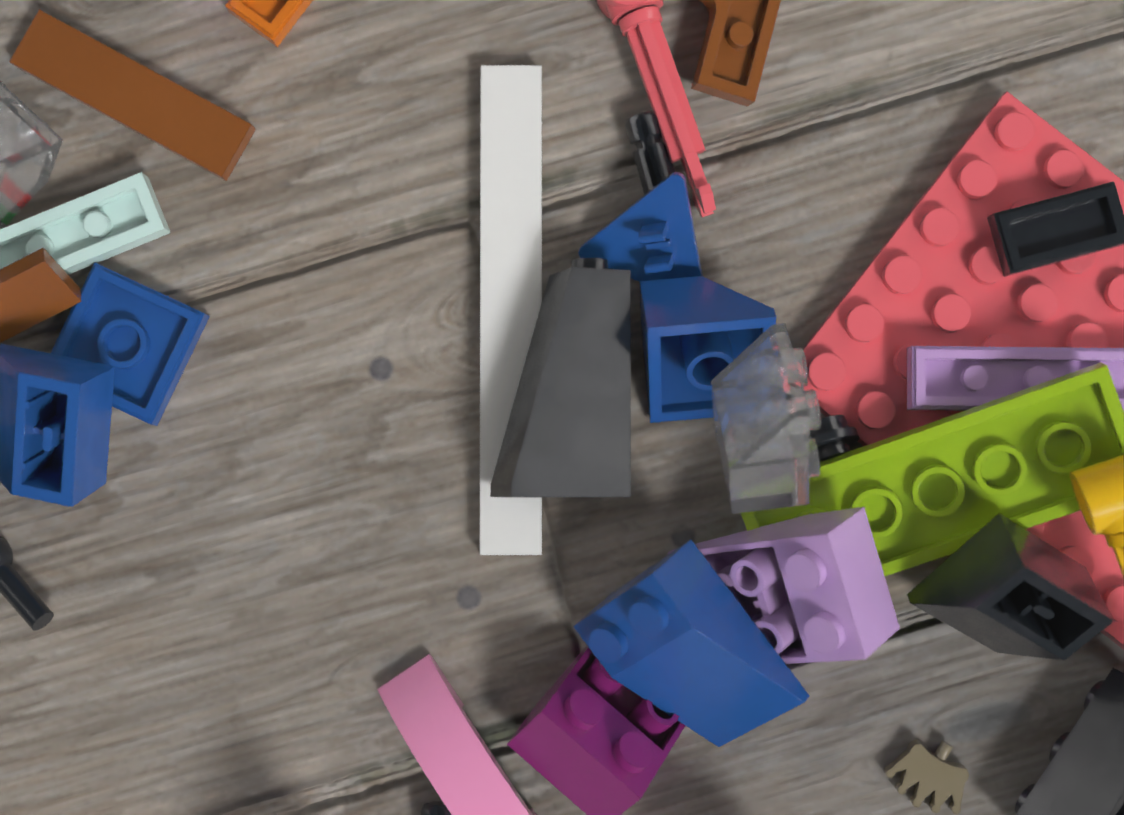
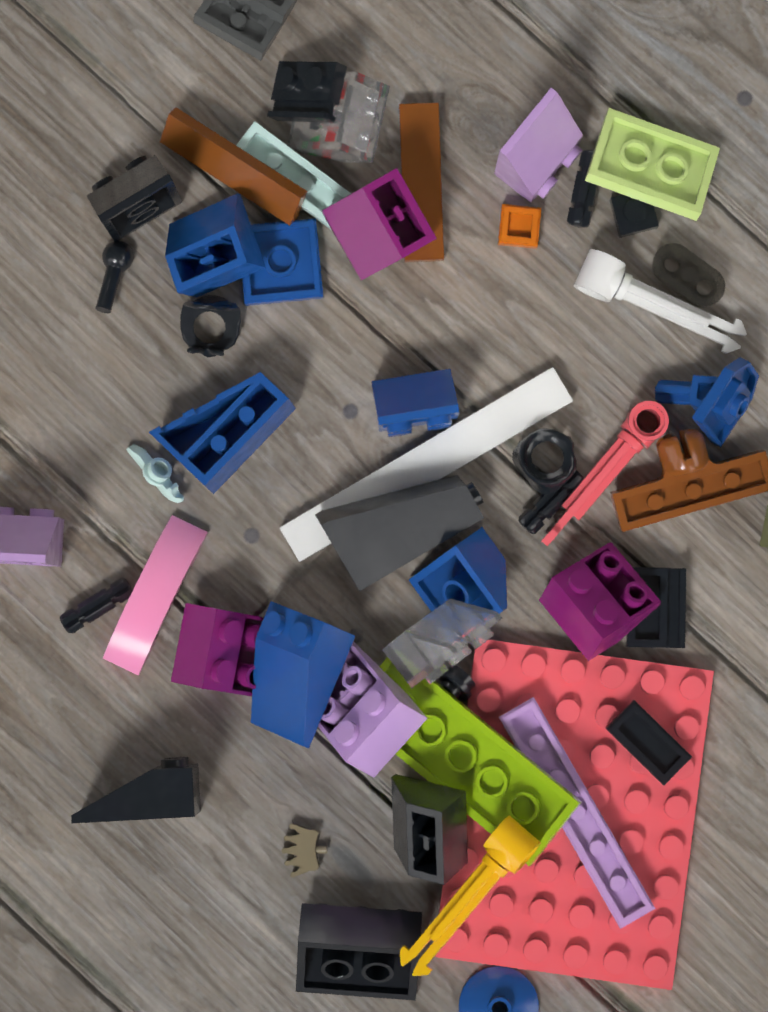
camera: 60 degrees right, 0 degrees up
(143, 173) = (378, 224): none -> magenta slope
(146, 452) = (227, 310): none -> black piece
(304, 550) = (226, 430): none -> blue wedge
(308, 677) = (156, 472): none -> light aqua piece
(418, 270) = (415, 401): none -> blue slope
(620, 171) = (545, 482): none -> black piece
(651, 236) = (511, 518): blue piece -> none
(830, 183) = (598, 600): none -> magenta slope
(880, 117) = (667, 622): none -> black plate

